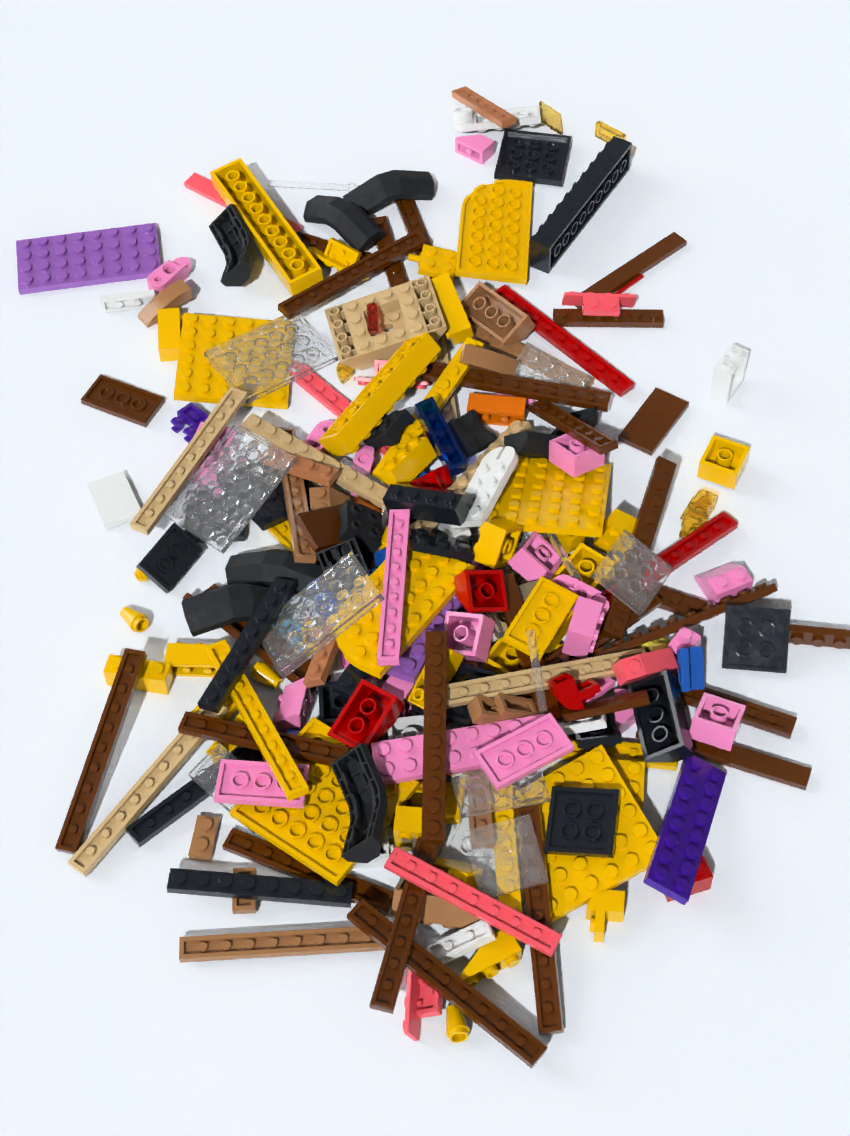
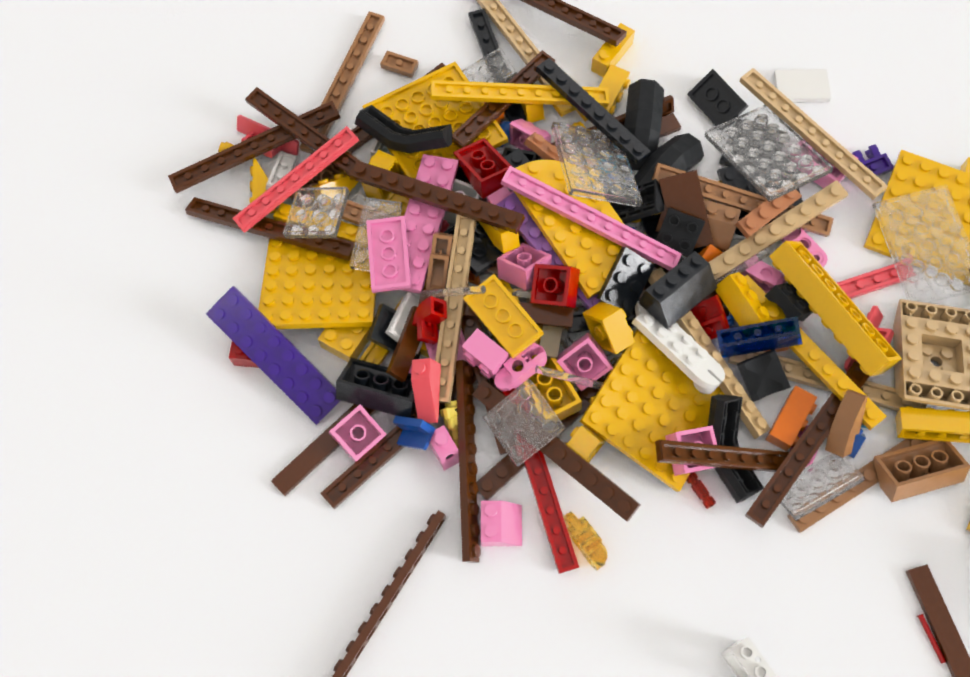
camera: 115 degrees right, 15 degrees up
(123, 400) = (918, 122): reddish brown tile -> none
(136, 620) = (668, 64): yellow cone -> none
(204, 838) = (453, 53): medium nougat plate -> none
(254, 784) = (468, 68): bright pink plate -> none
(259, 887) = (397, 61): black plate -> none
(344, 373) = (889, 306): clear yellow tile -> none
(372, 318) = (942, 338): clear red axle -> none
(570, 345) = (867, 525): red plate -> none
(582, 822) = (315, 278): black plate -> none
(599, 303) = (901, 583): coral bracket -> none
(604, 907) = (254, 277): yellow brick -> none
(627, 319) = (887, 592): reddish brown plate -> none
(653, 421) = (724, 565): reddish brown tile -> none
(723, 462) = (636, 597): yellow brick -> none
(756, 639) = (421, 511): black plate -> none

